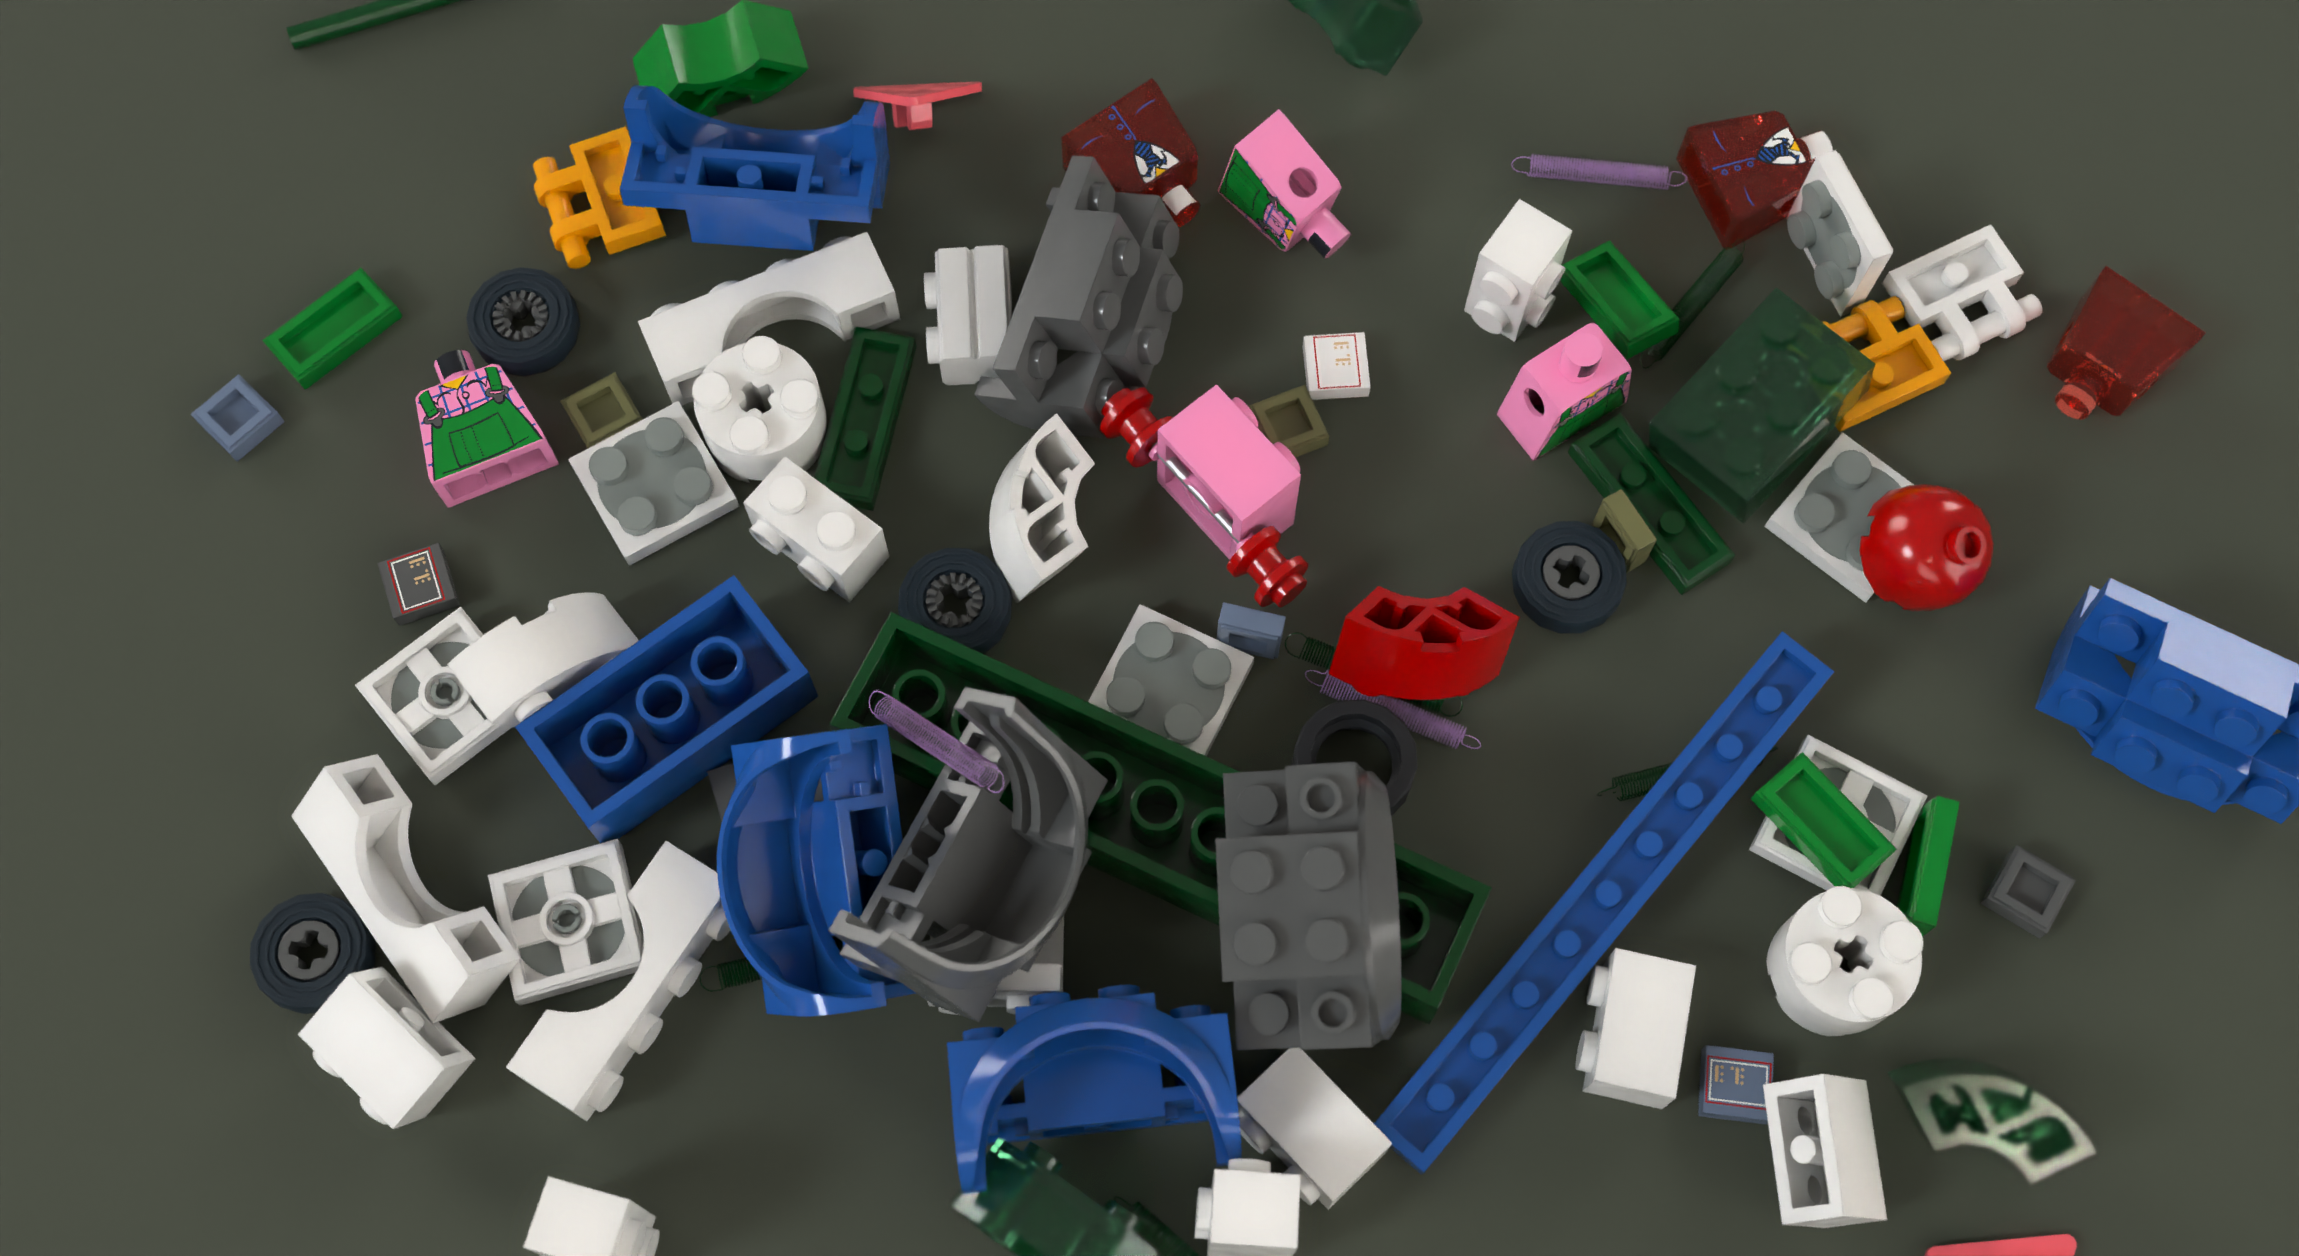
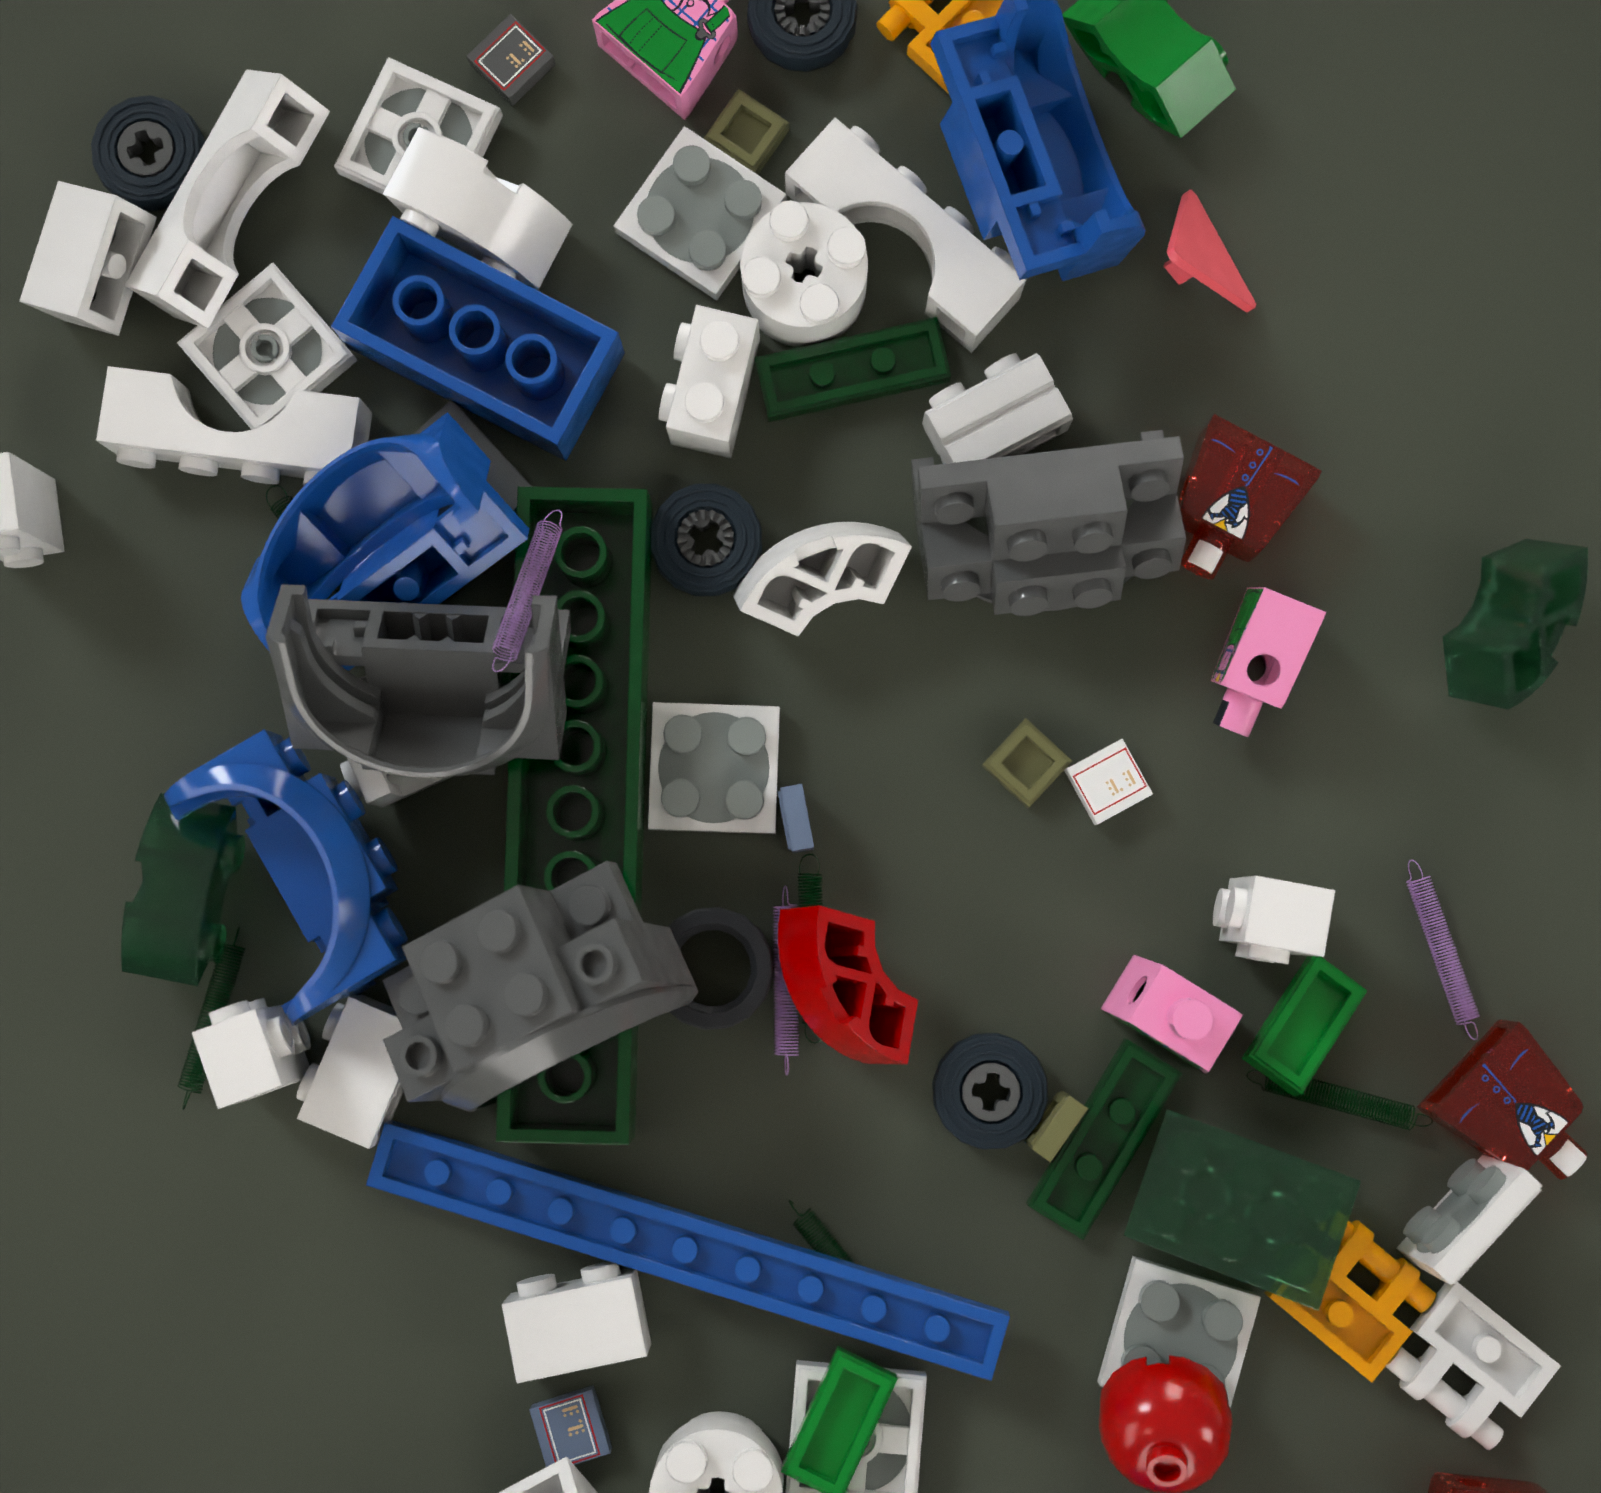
camera: 70 degrees right, 15 degrees up
(1223, 478) = (928, 731): bright pink brick -> none

